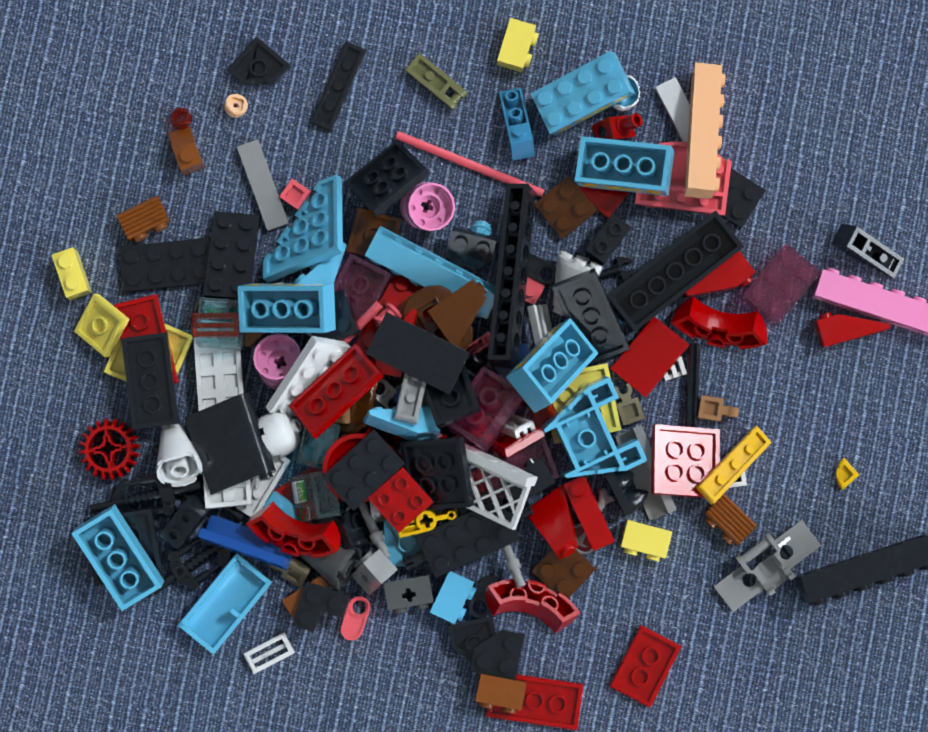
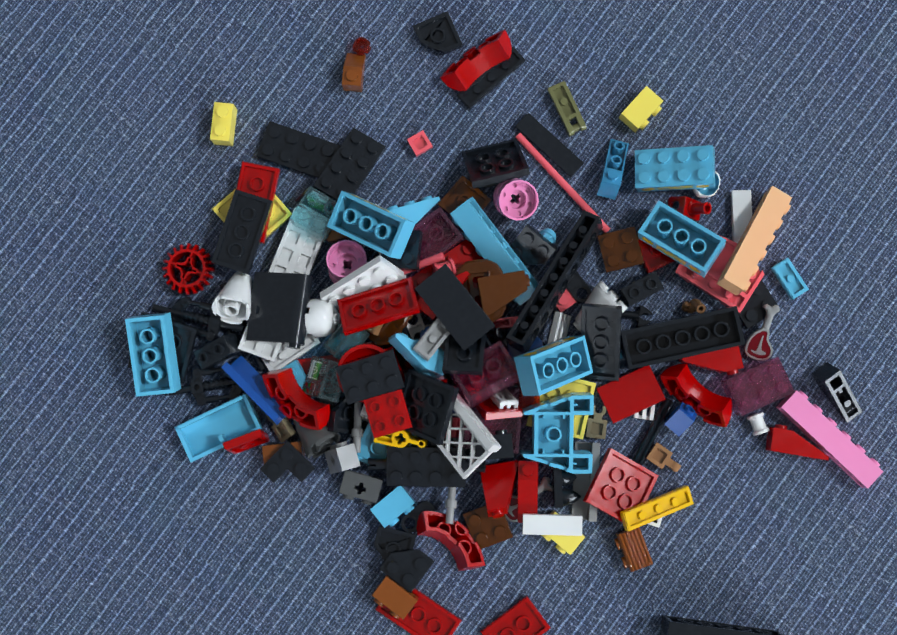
camera: 25 degrees right, 0 degrees up
(101, 325) = (227, 173): light yellow tile -> none
(143, 219) = (297, 108): dark orange brick -> none
(206, 334) = (325, 219): clear red tile -> none
(235, 105) = (407, 56): light nougat tile -> none
(251, 662) = (250, 480): white tile -> none
(262, 185) = (398, 125): light grey tile -> none
(263, 603) = (246, 441): none -> red tile
(313, 235) = (418, 180): medium azure plate -> none
(315, 76) = (478, 61): none -> red brick
(354, 623) = (309, 488): coral piece -> none
(436, 130) = (549, 145): none -> black tile
(631, 535) = (552, 524): none -> white tile
(672, 231) = (693, 306): none -> medium nougat arm
(715, 358) = (680, 418): none -> blue brick
(760, 240) = (758, 342): none -> light grey piece
(761, 153) = (789, 278): none -> medium azure plate
(772, 571) = (646, 604): light grey piece -> none
(799, 324) = (758, 423): none -> white bush
(845, 473) = (739, 555): yellow tile -> none

